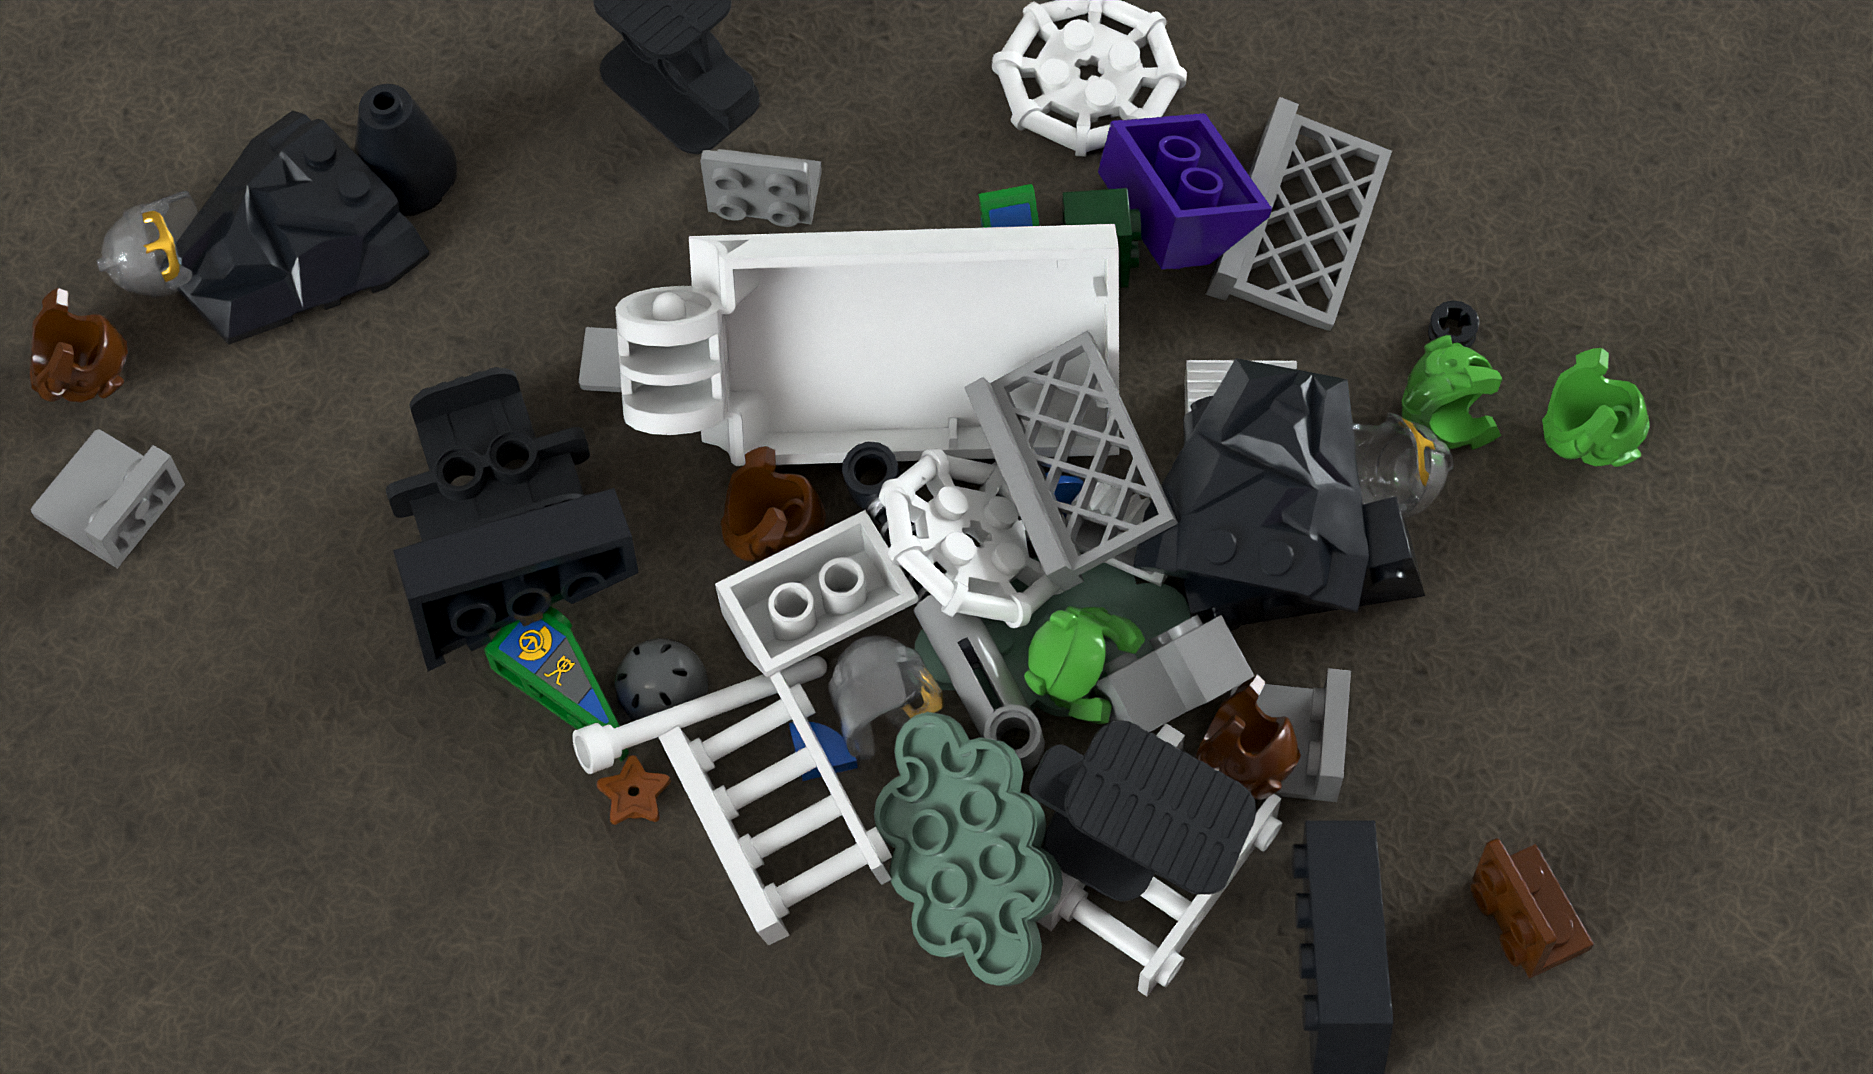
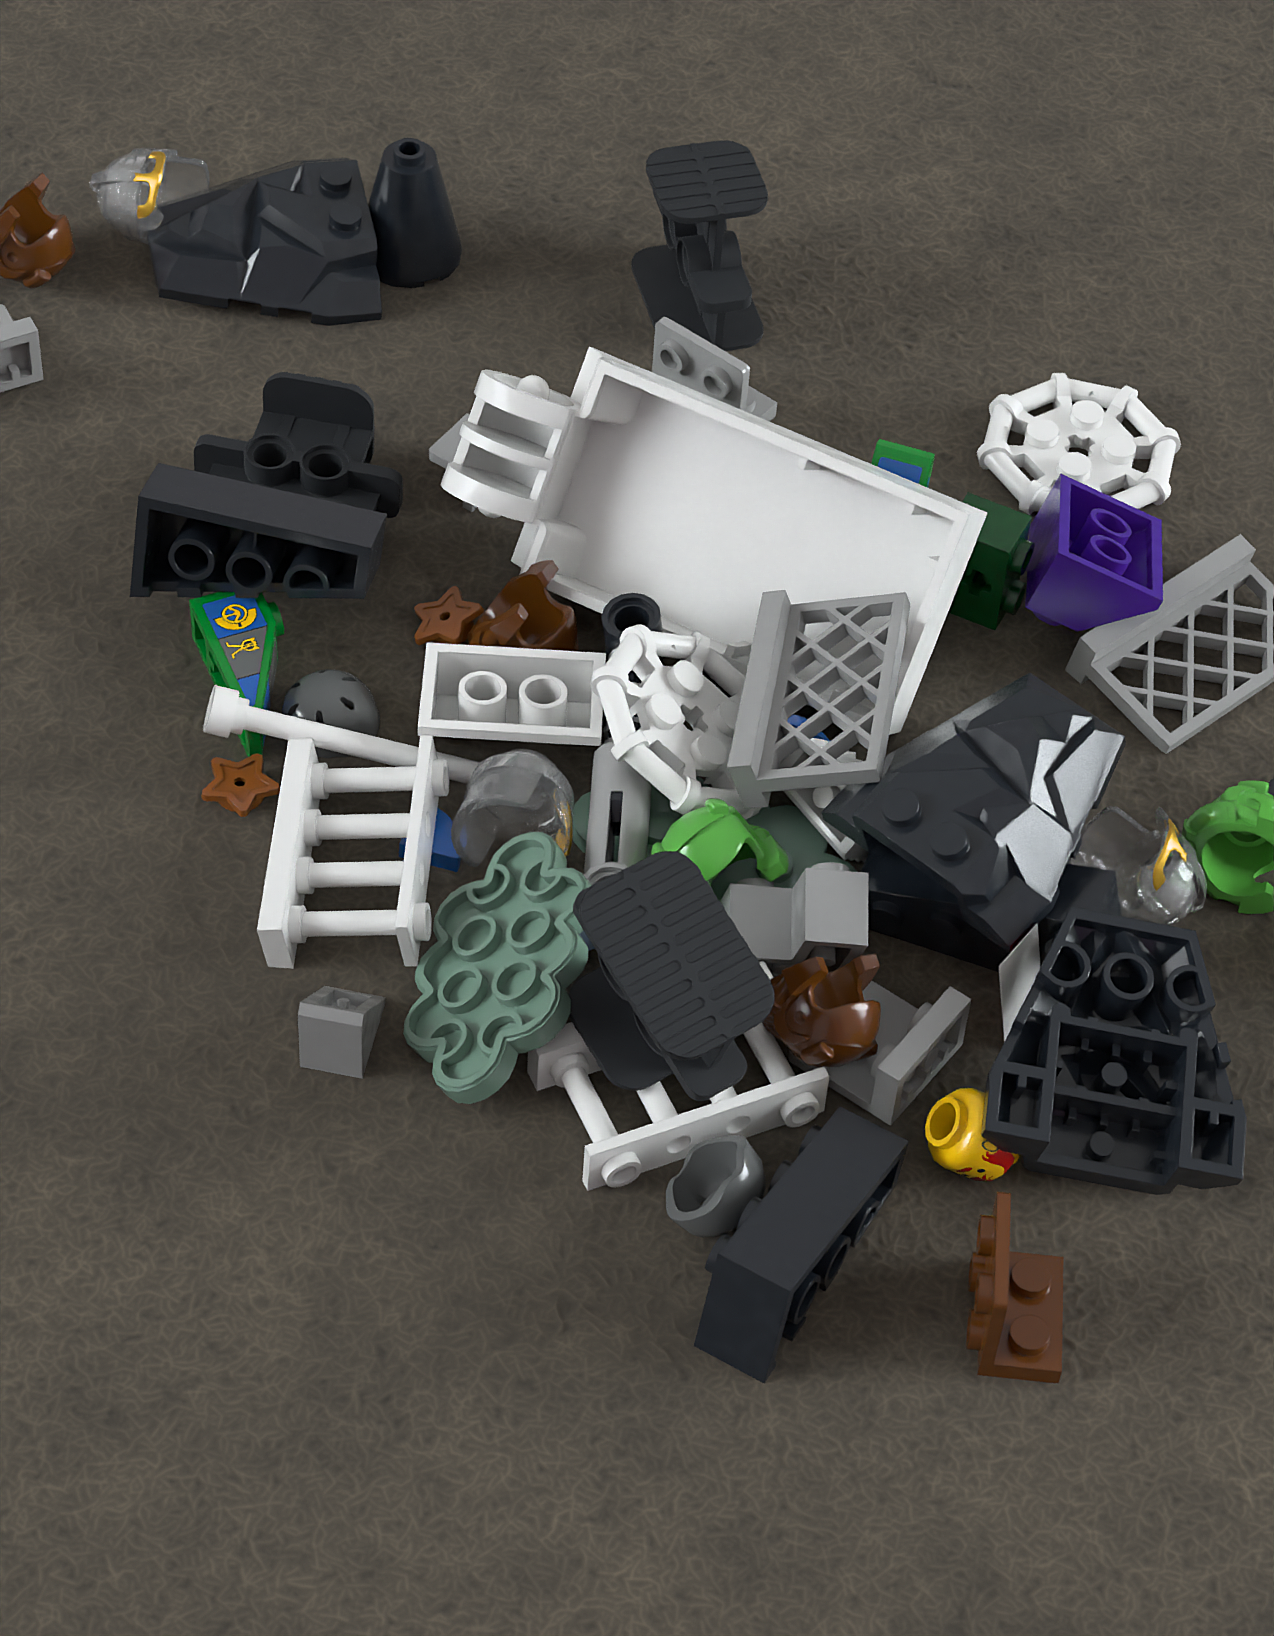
camera: 25 degrees right, 15 degrees down
(704, 545) = (446, 619): none -> dark orange plate
(870, 969) = (338, 1030): none -> light grey slope
(1268, 950) = (723, 1176): none -> dark grey helmet
(1370, 628) = (1017, 977): none -> white sticker
(1413, 780) = (956, 1138): none -> yellow head
(1492, 658) = (1118, 1064): none -> black wedge

